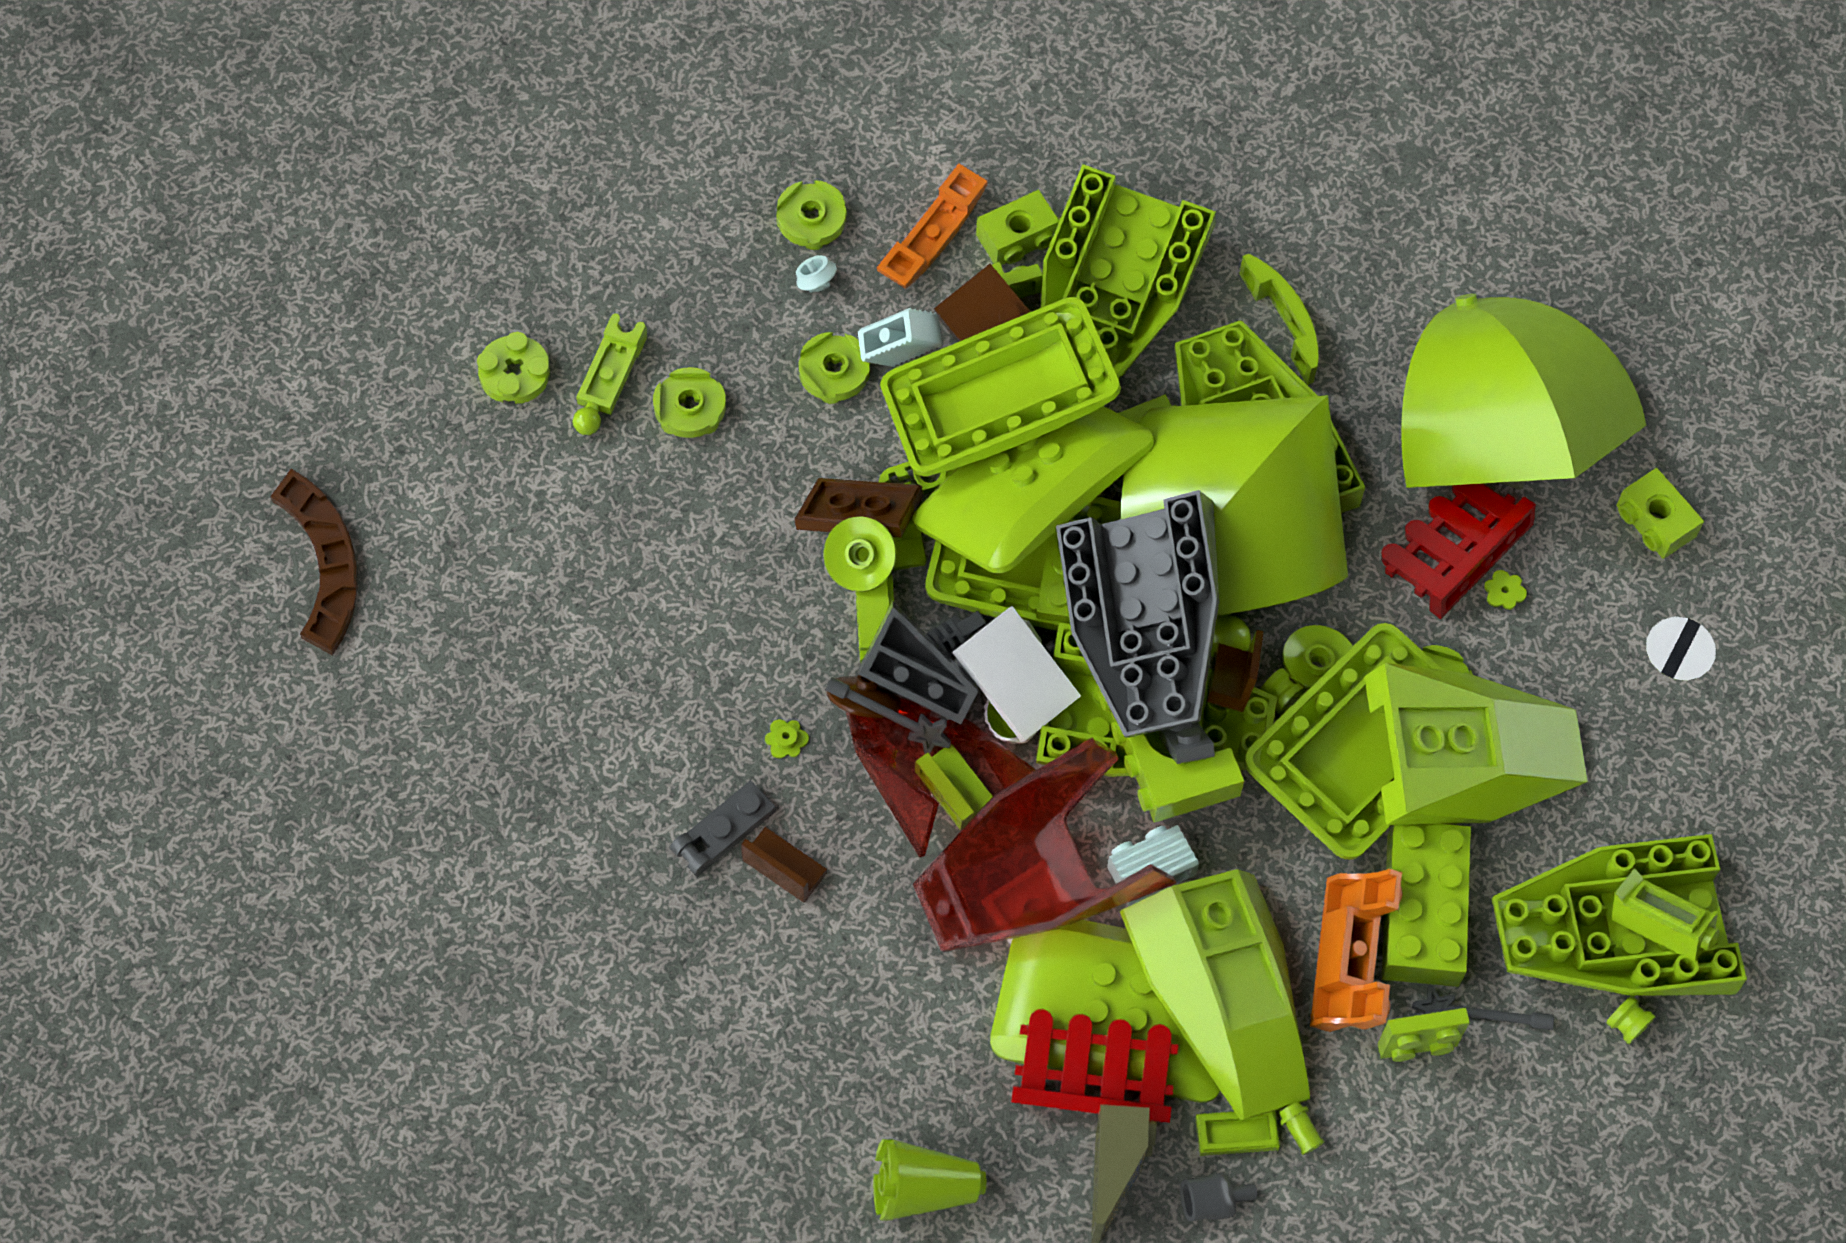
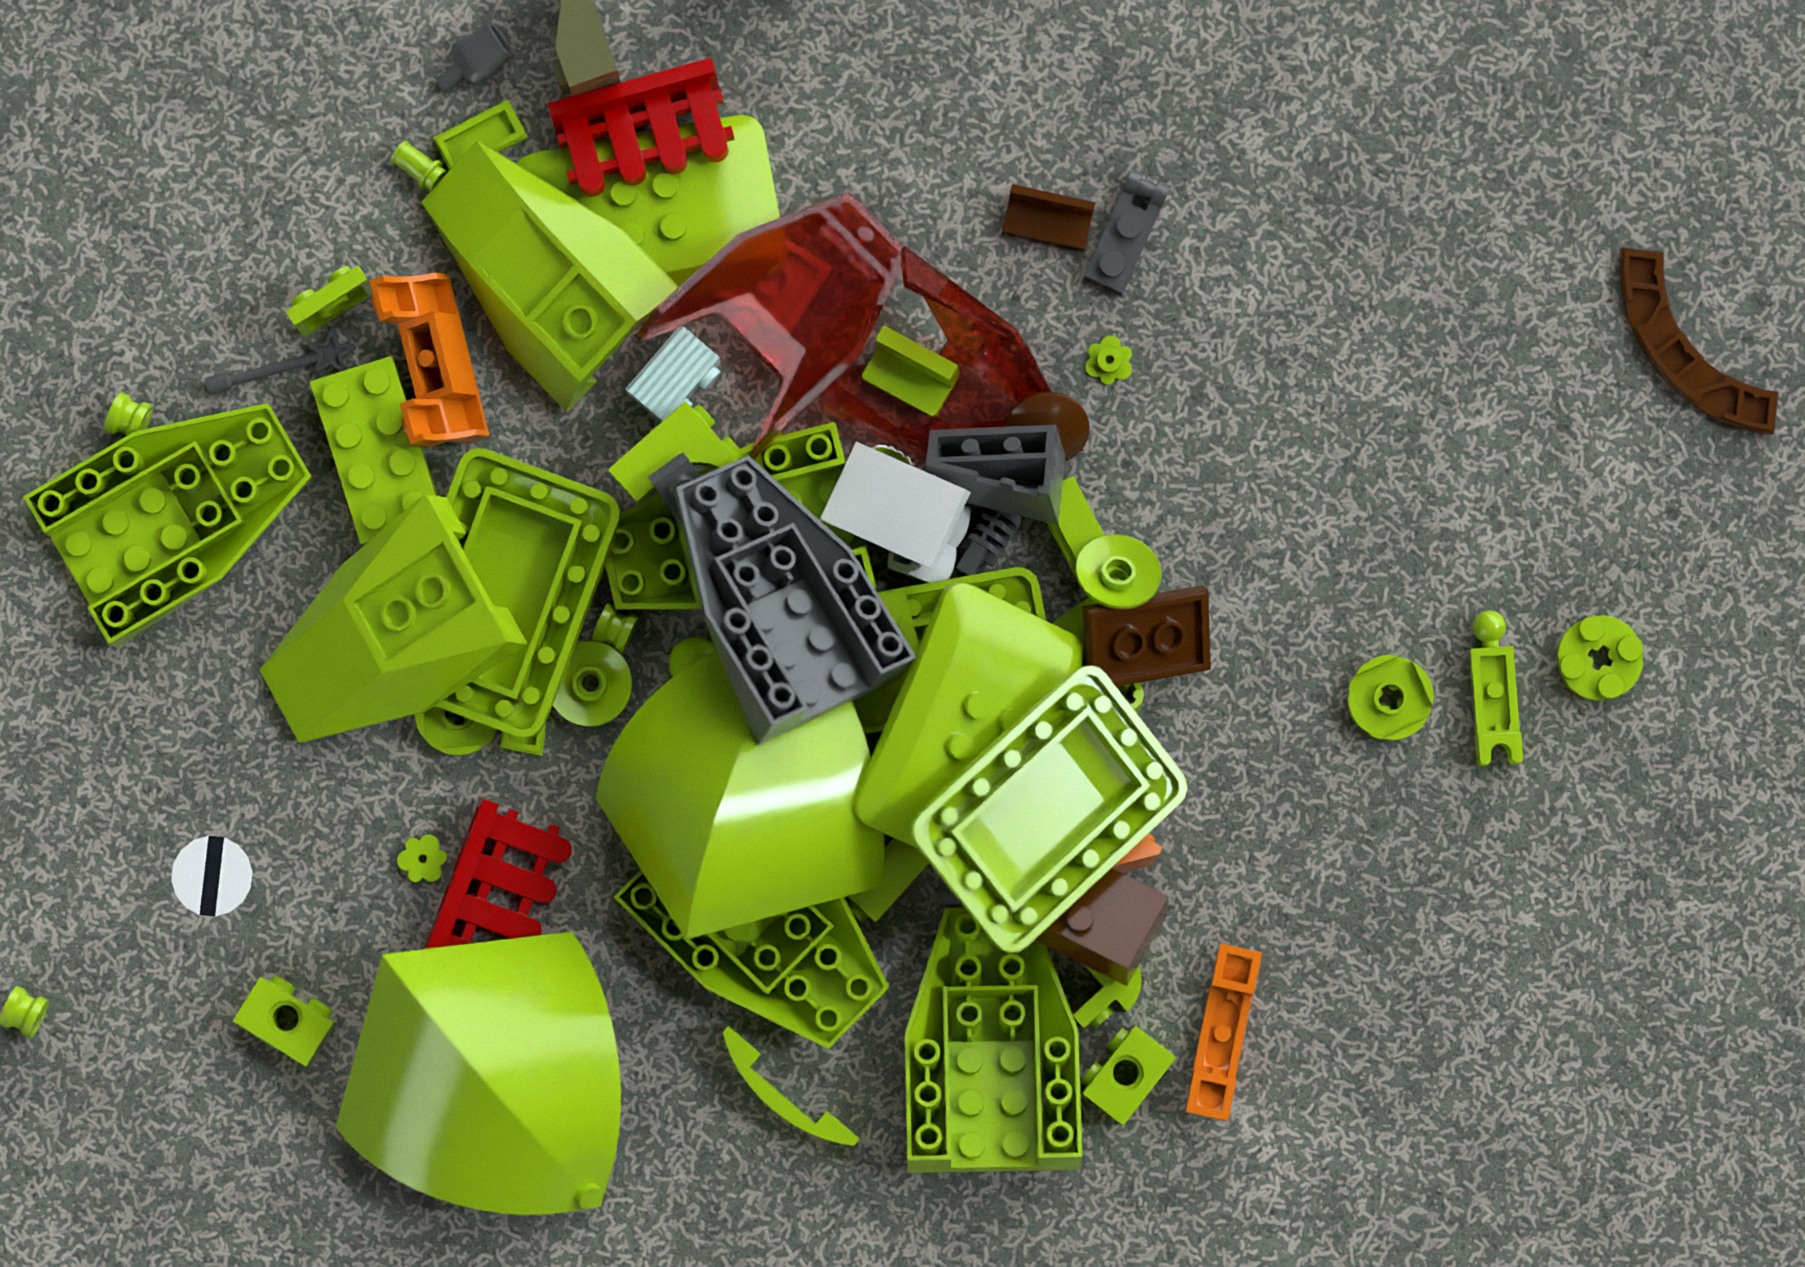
camera: 155 degrees right, 20 degrees up
(815, 274) = (1327, 919): light aqua hat -> none
(816, 231) = (1388, 982): lime plate -> none
(833, 385) = (1278, 806): lime plate -> none
(900, 337) = (1193, 859): light aqua brick -> none
(924, 732) = (967, 410): dark grey piece -> none
(1234, 674) = (668, 604): reddish brown panel -> none
(1664, 917) = (126, 522): lime window -> none

